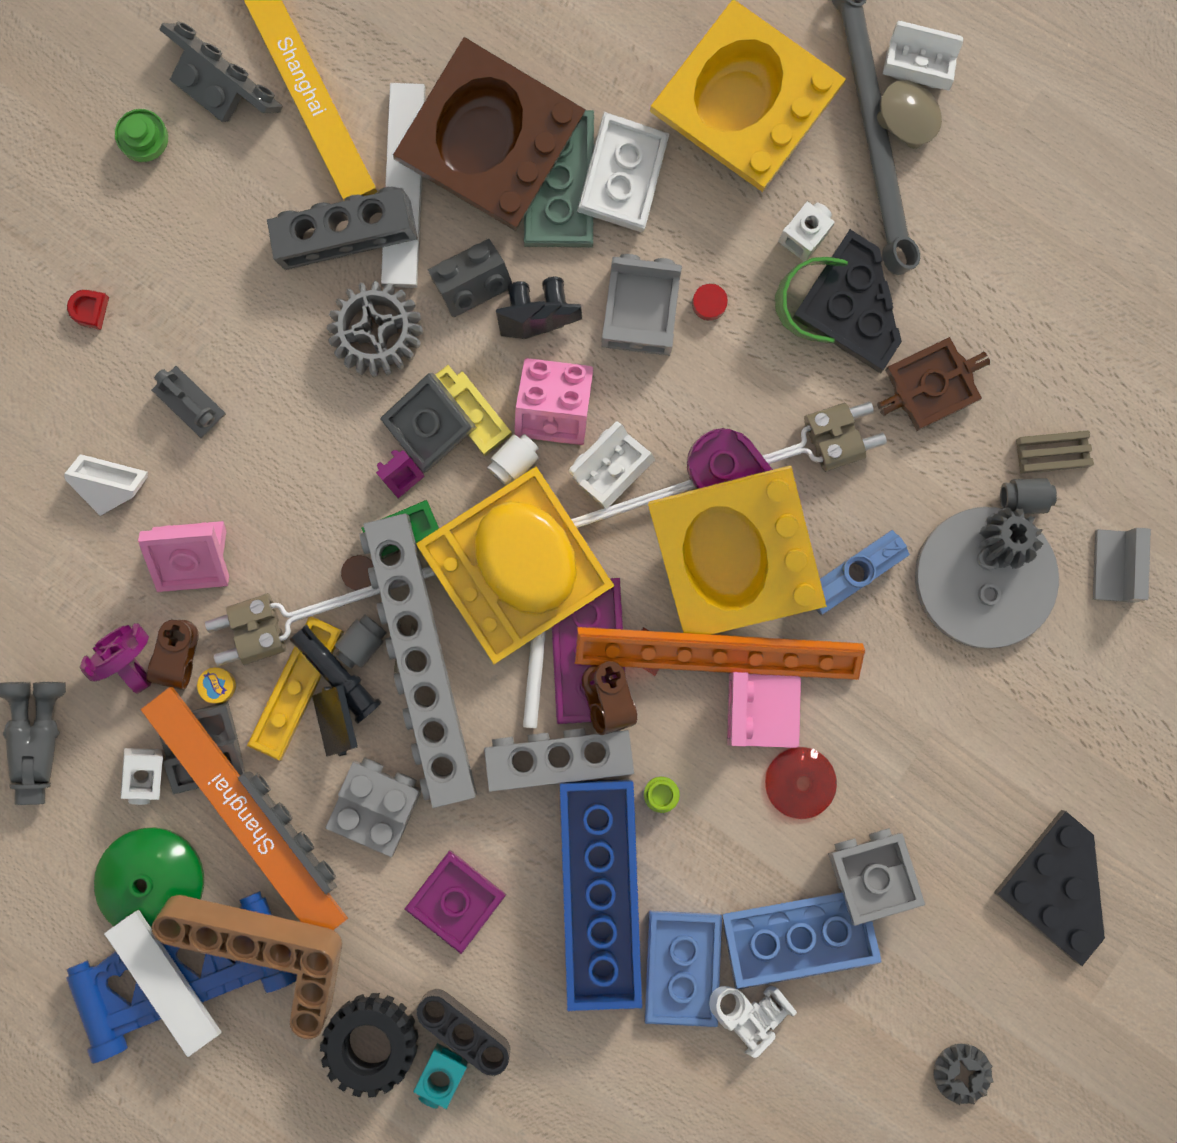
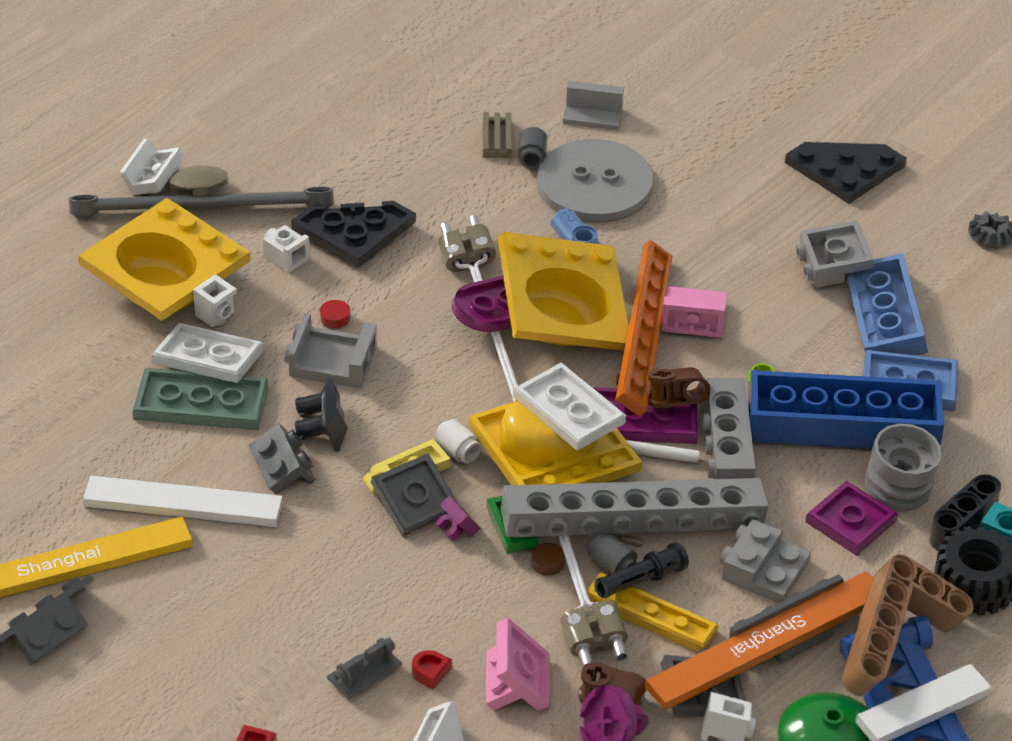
camera: 80 degrees left, 40 degrees down
(141, 135) = (87, 683): bright green plate -> none
(200, 466) = (430, 667): none -> red tile
(216, 685) = (644, 664): yellow tile -> none
(334, 721) = (685, 572): black piece -> none
(387, 327) = (320, 524): light grey gear -> none
(393, 228) = (217, 577): dark grey brick -> none
(489, 134) = (158, 418): reddish brown piece -> none
(498, 978) = (903, 466): none -> light grey wheel
(527, 573) = (569, 406): none -> white tile
(553, 401) = (412, 405): bright pink bracket -> none
(610, 465) = (475, 380): white bracket -> none
(690, 167) = (215, 308): none -> white brick
(752, 1020) = (947, 339): white piece -> none
(781, 298) = (343, 262): bright green piece -> none
(782, 782) = (756, 300): clear red dish -> none
(933, 383) = (431, 189): reddish brown plate -> none
(1023, 544) = (567, 150): dark grey gear -> none

